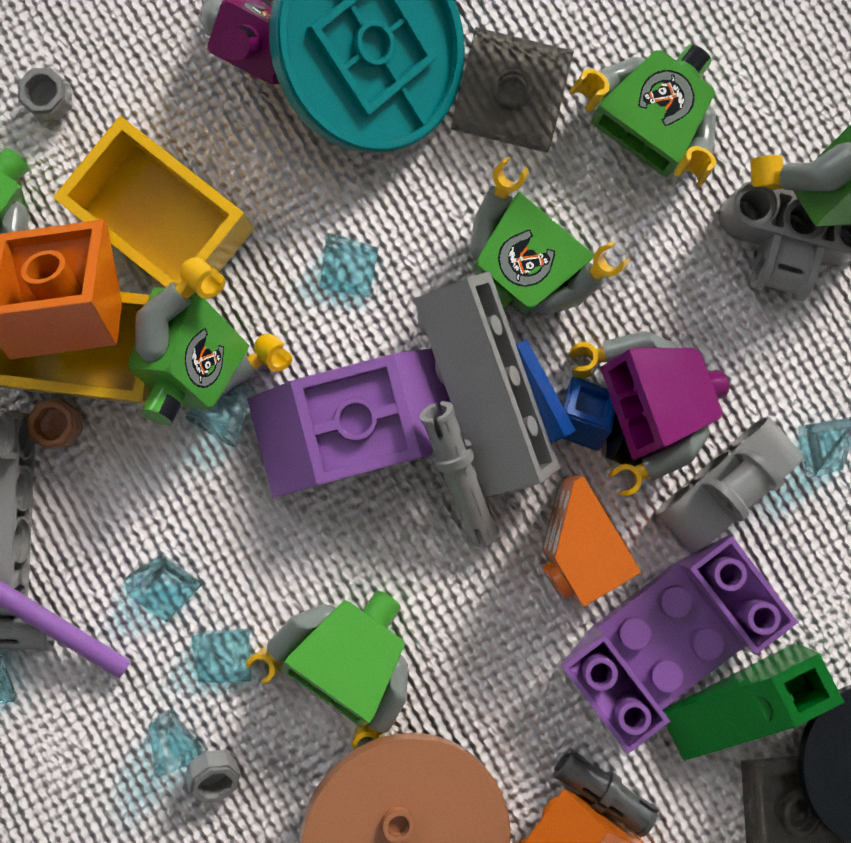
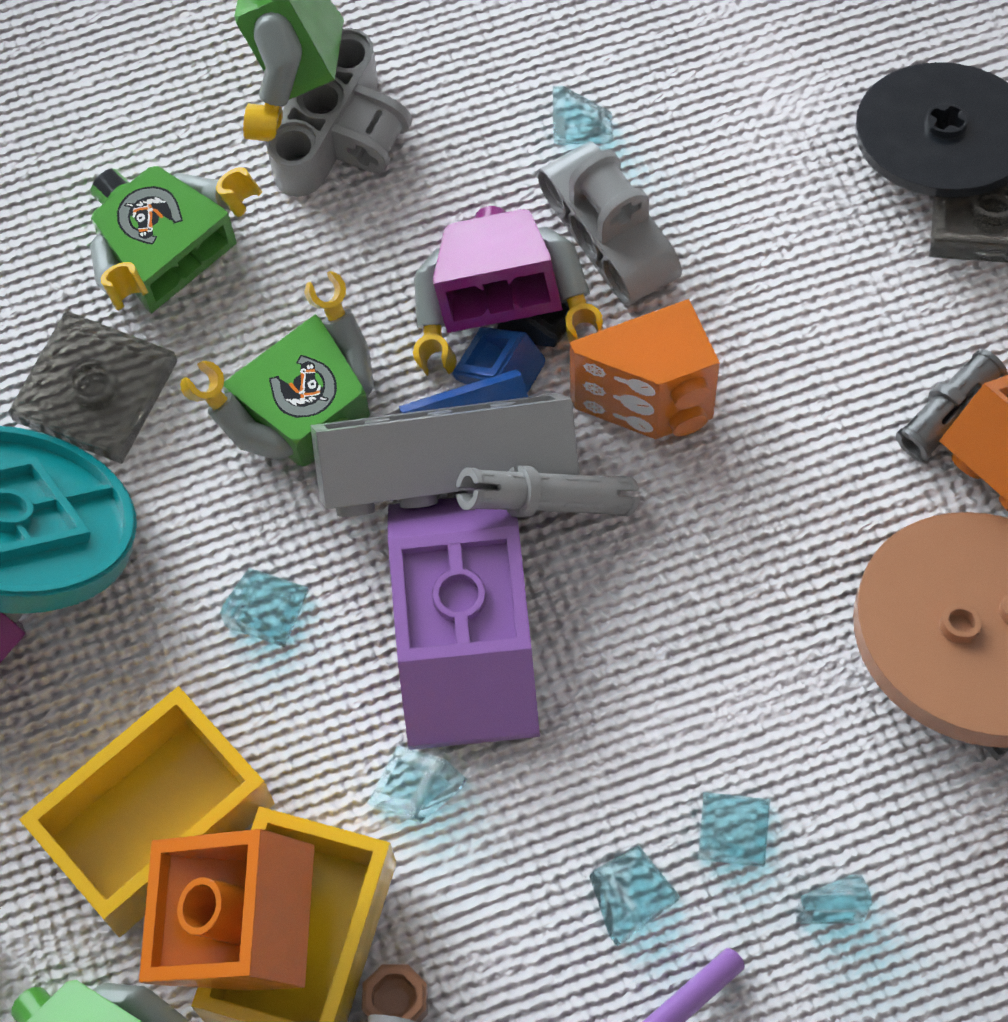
camera: 75 degrees left, 20 degrees down
(190, 350) = (331, 778): torso -> none
(212, 776) = (884, 855): light grey tile -> none
(345, 661) = (755, 666): bright green torso -> none
(674, 638) = (772, 298): medium lavender slope -> none
(754, 703) = (862, 232): green slope -> none

